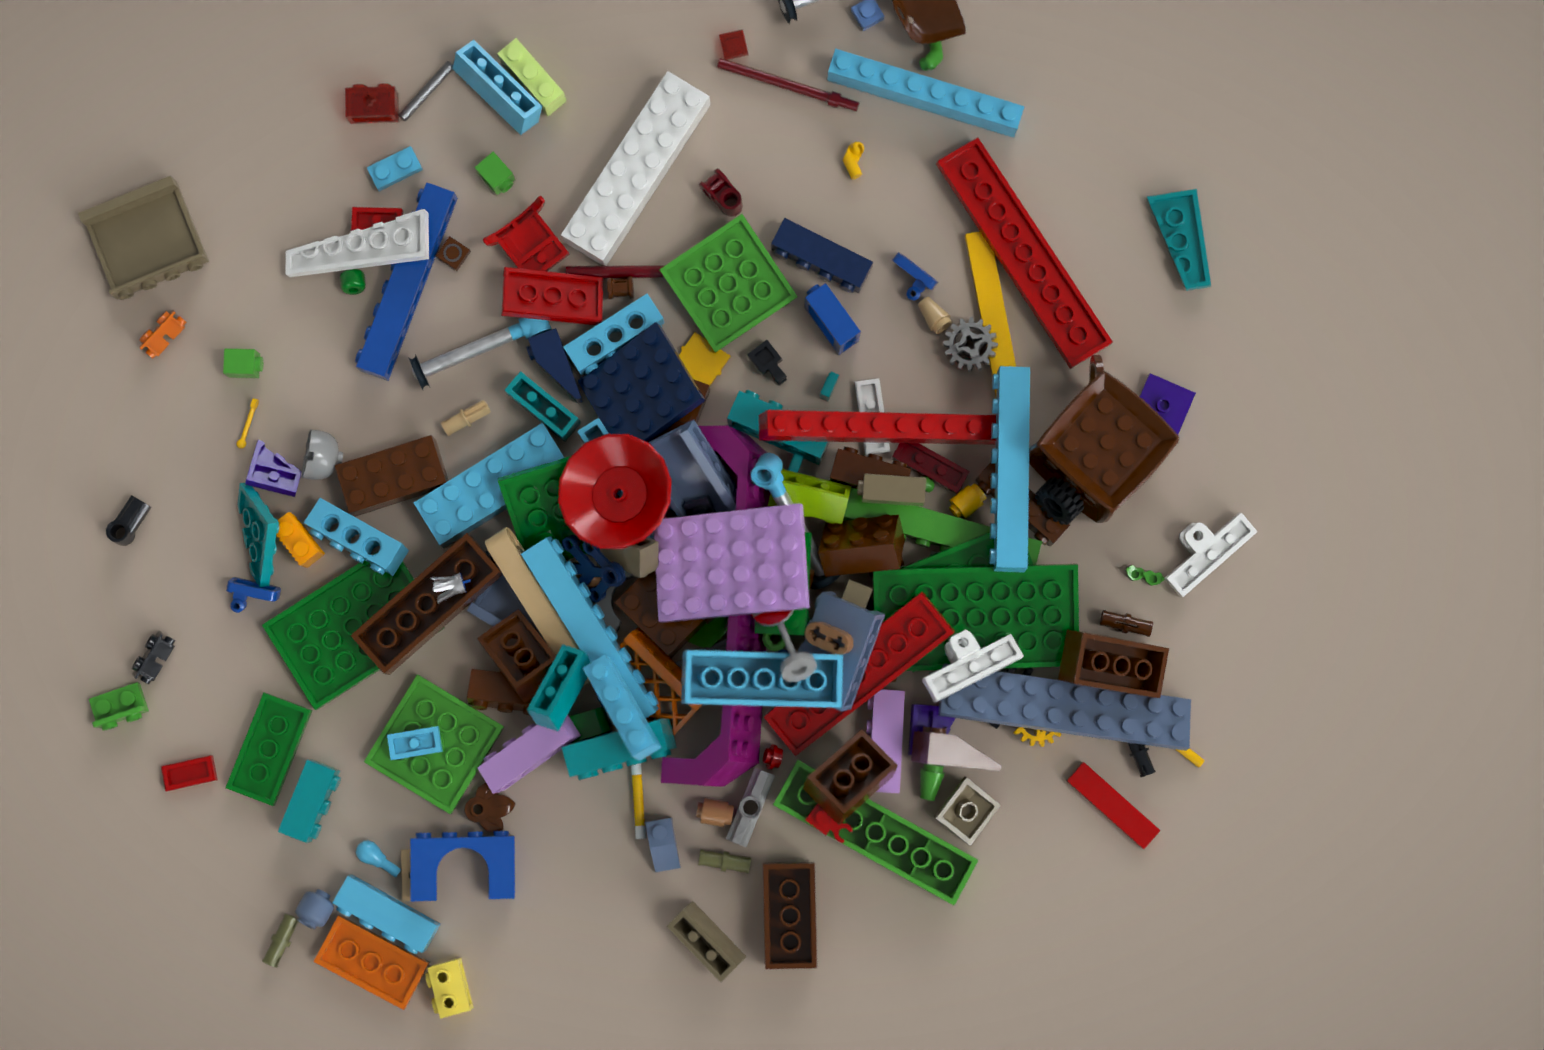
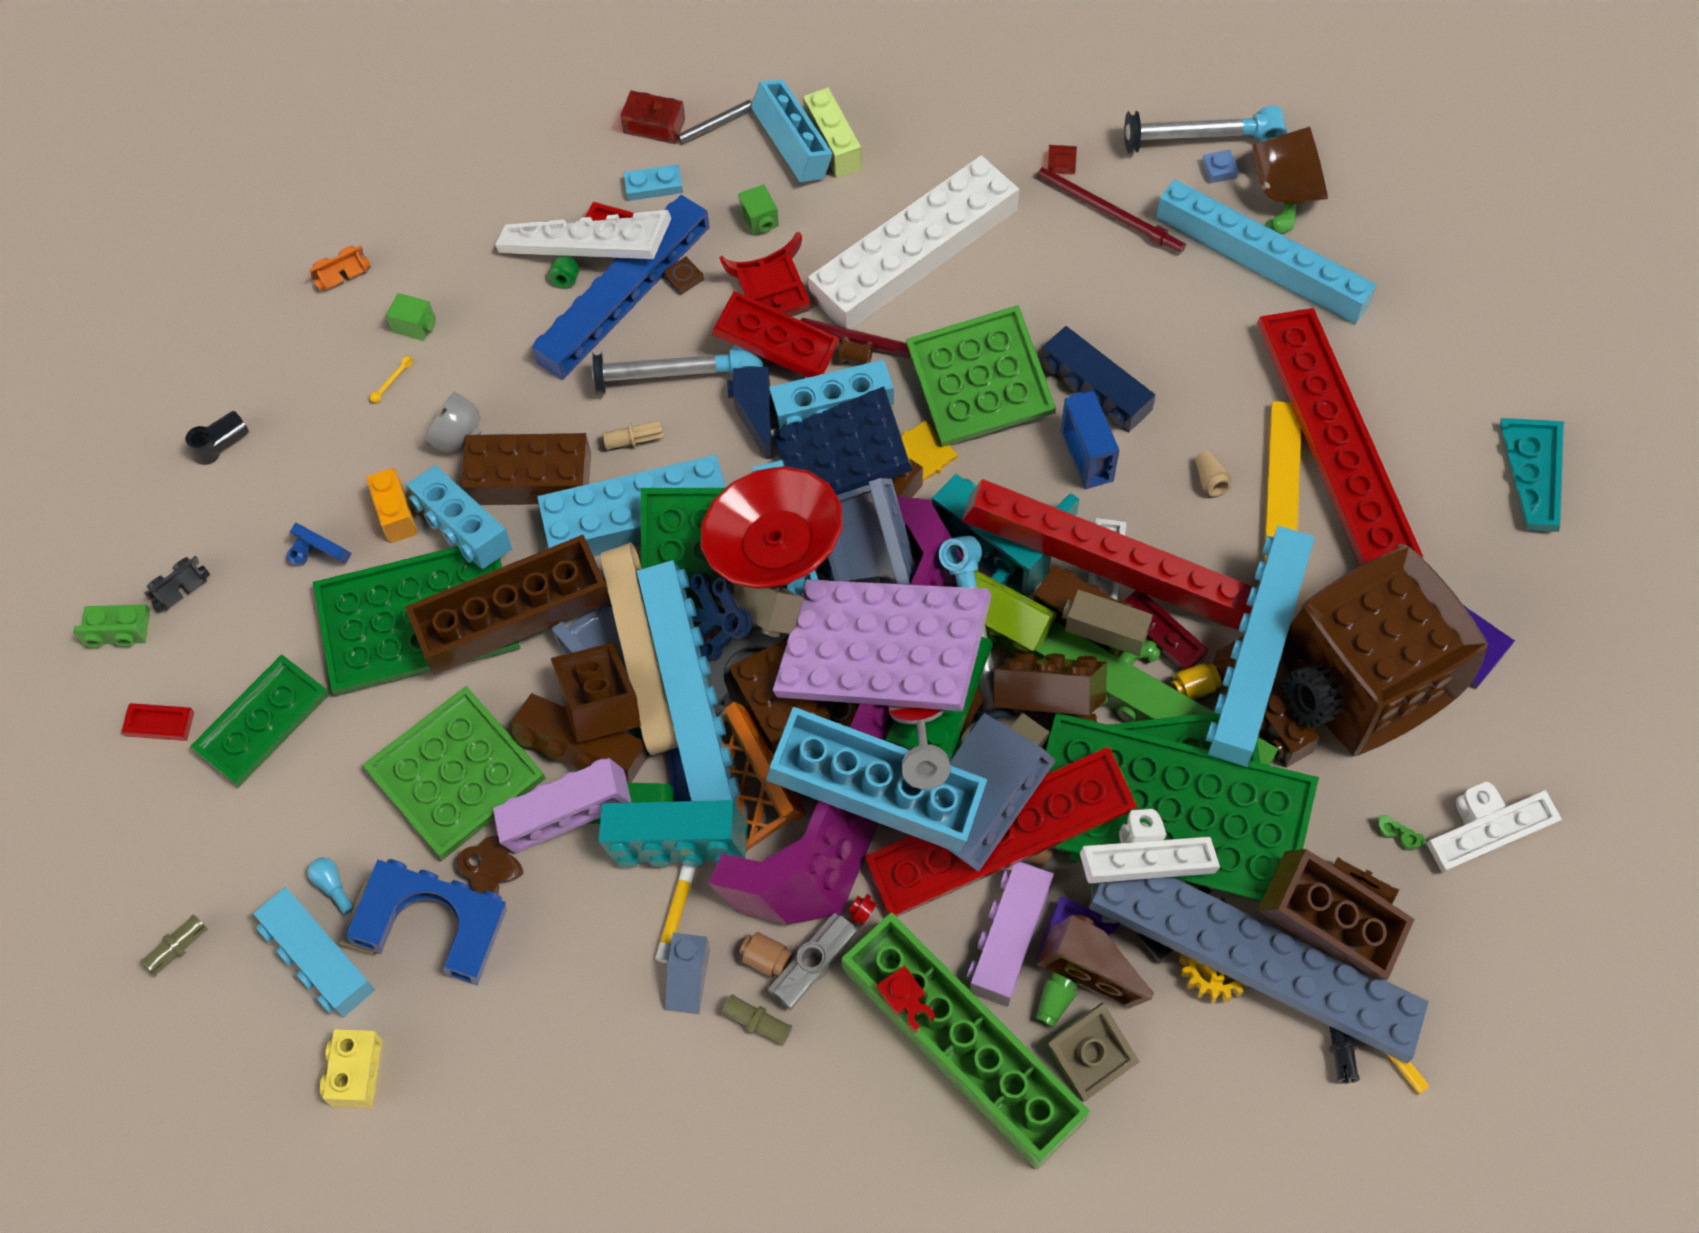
camera: 20 degrees right, 20 degrees down
(144, 237) = (363, 176): dark tan panel -> none
(258, 534) = (357, 469): teal plate -> none
(272, 472) = (395, 430): wing -> none
(310, 801) = (280, 791): teal brick -> none
(314, 909) = (229, 919): sand blue head -> none
(371, 962) = (270, 1007): orange plate -> none
(414, 743) = (430, 757): medium azure plate -> none
(453, 584) = (547, 578): flat silver piece -> none
(542, 406) = (722, 438): teal brick -> none
(559, 688) = (625, 727): teal brick -> none
(622, 707) = (692, 771): medium azure brick -> none
(706, 941) = (698, 1111): dark tan brick -> none
(720, 189) = (1002, 288): dark red piece -> none
(767, 359) = (999, 467): black plate -> none
(790, 915) = (817, 1111): reddish brown brick -> none
(831, 633) = (980, 760): medium nougat beam -> none
(850, 777) = (951, 945): reddish brown brick -> none
(851, 159) = (1161, 295): yellow arm -> none
(923, 279) = (1208, 430): blue piece -> none
(960, 349) = (1261, 517): light grey gear -> none
(1113, 805) = (1291, 1108): red tile -> none

